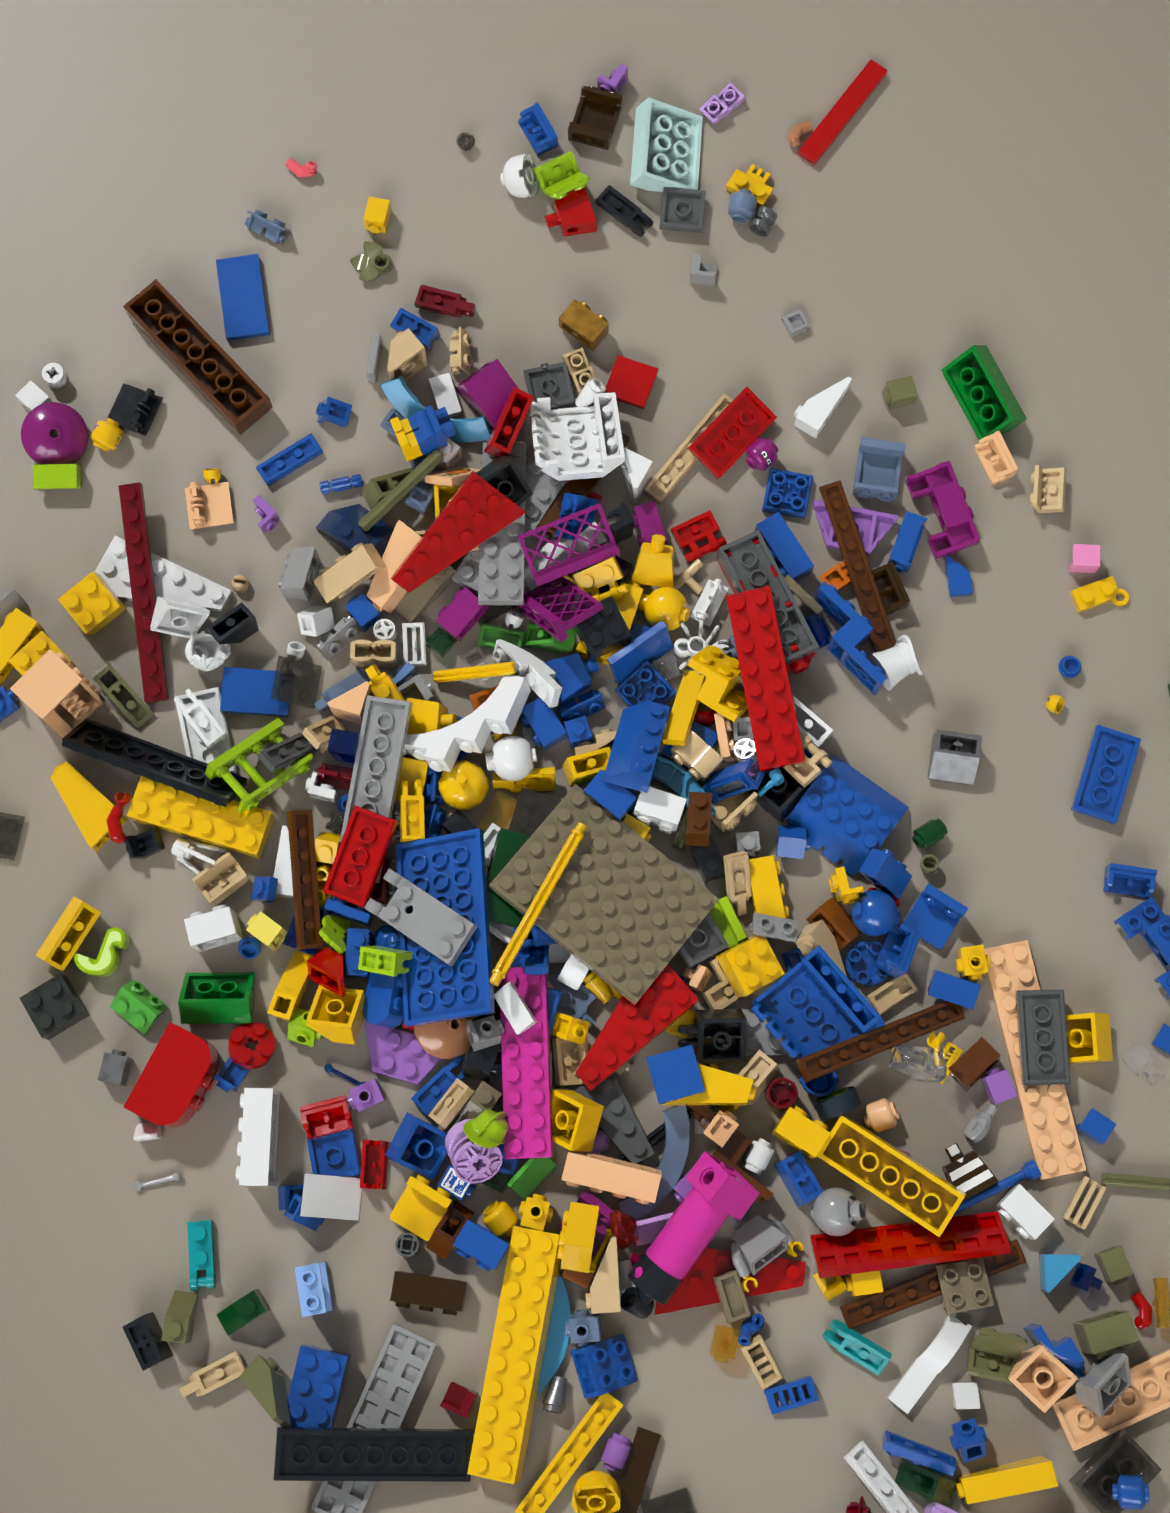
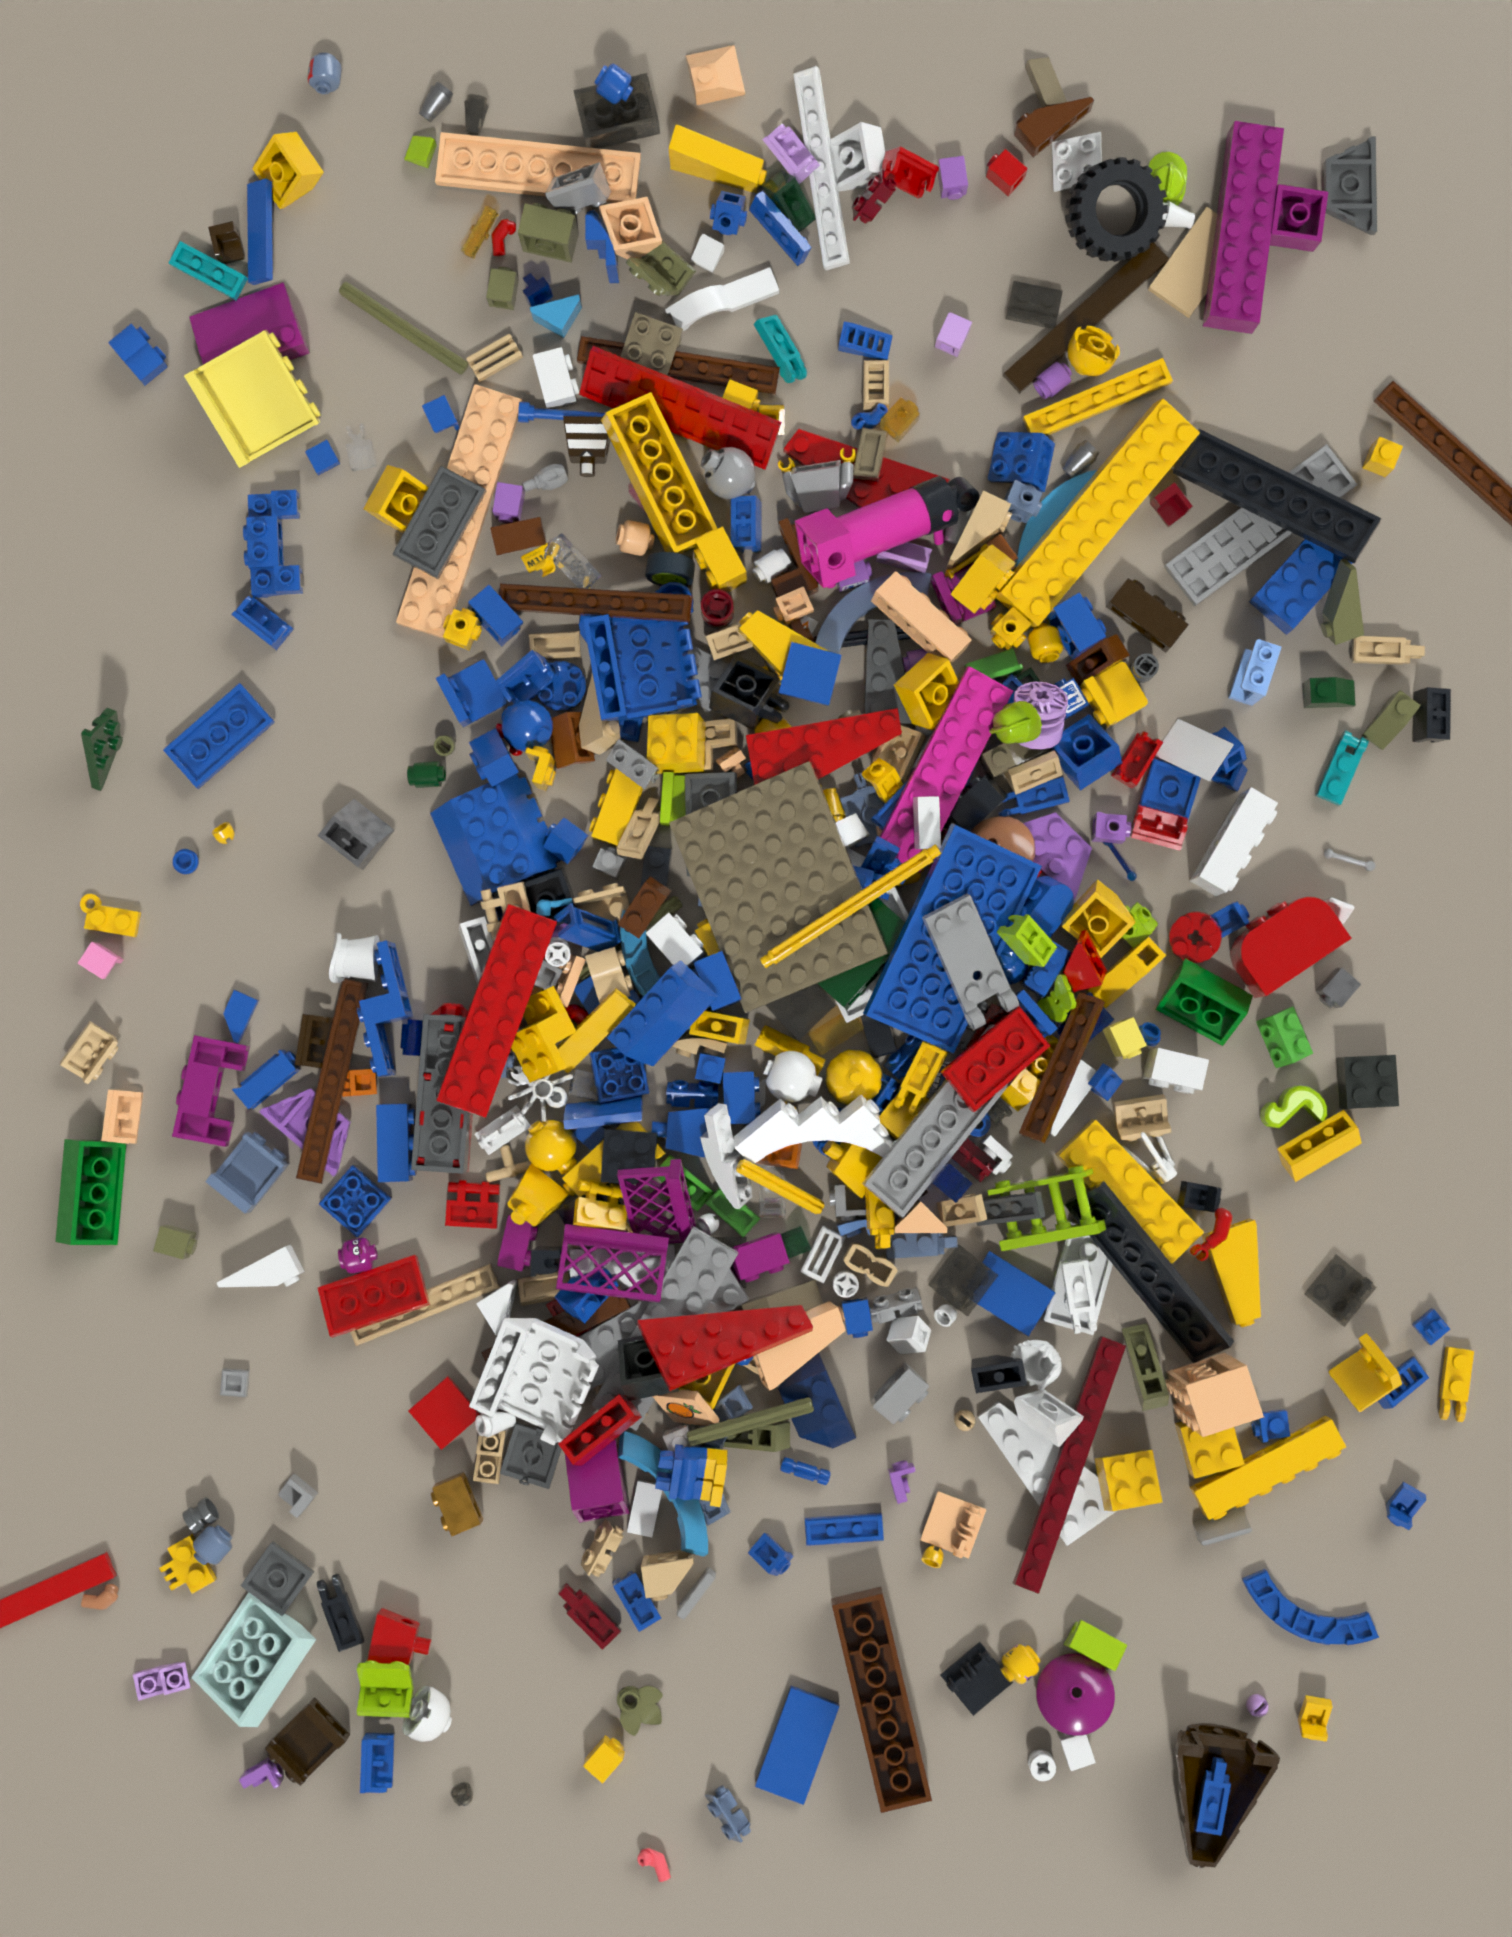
camera: 150 degrees left, 10 degrees up
(348, 572) = (850, 1364): tan brick -> none
(479, 1037) = (975, 814): light grey brick -> none
(613, 501) = (539, 1288): none -> tan tile
(624, 1229) = (938, 563): clear red bracket -> none
(721, 1443) = (953, 334): none -> lavender panel
(803, 595) = (405, 1080): dark tan tile -> none

